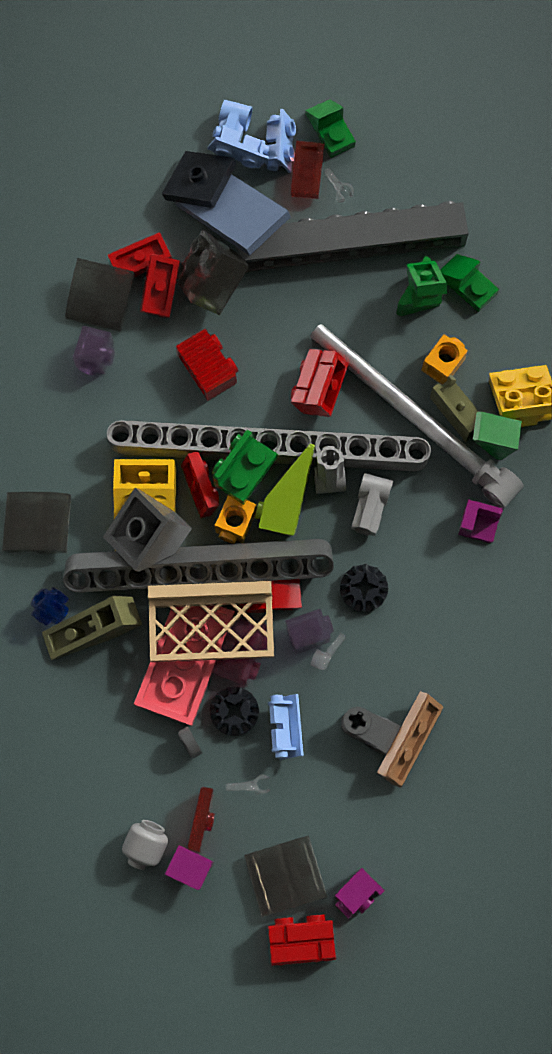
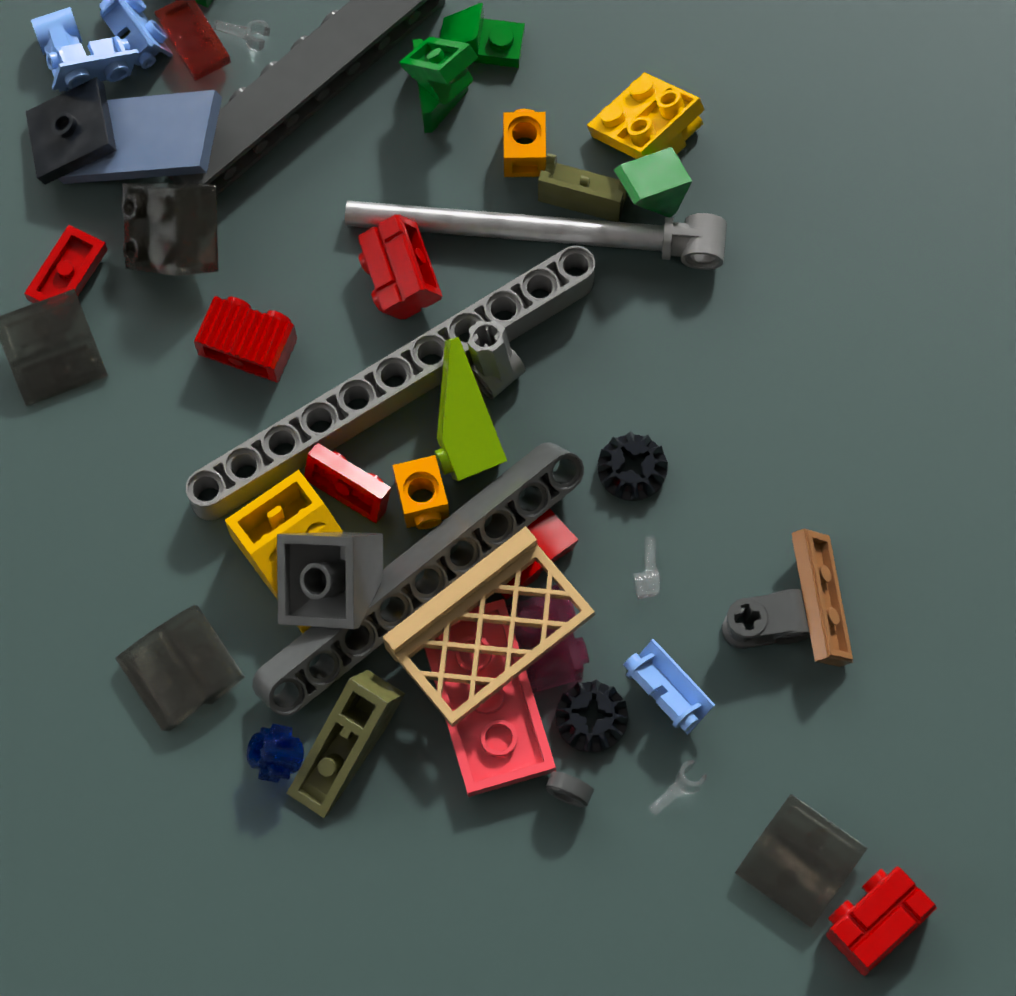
camera: 35 degrees left, 5 degrees down
(94, 351) = (95, 416): clear purple brick -> none
(145, 844) = (609, 947): light grey head -> none
(159, 286) = (118, 286): red plate -> none
(189, 867) = (683, 933): magenta panel -> none
(203, 819) = (655, 867): clear red plate -> none
(243, 467) = (390, 421): green bracket -> none
(309, 630) = (609, 558): clear purple brick -> none
(357, 894) = (899, 816): magenta brick -> none
(372, 498) = (563, 354): light grey piece -> none
(480, 521) = (705, 297): magenta panel -> none

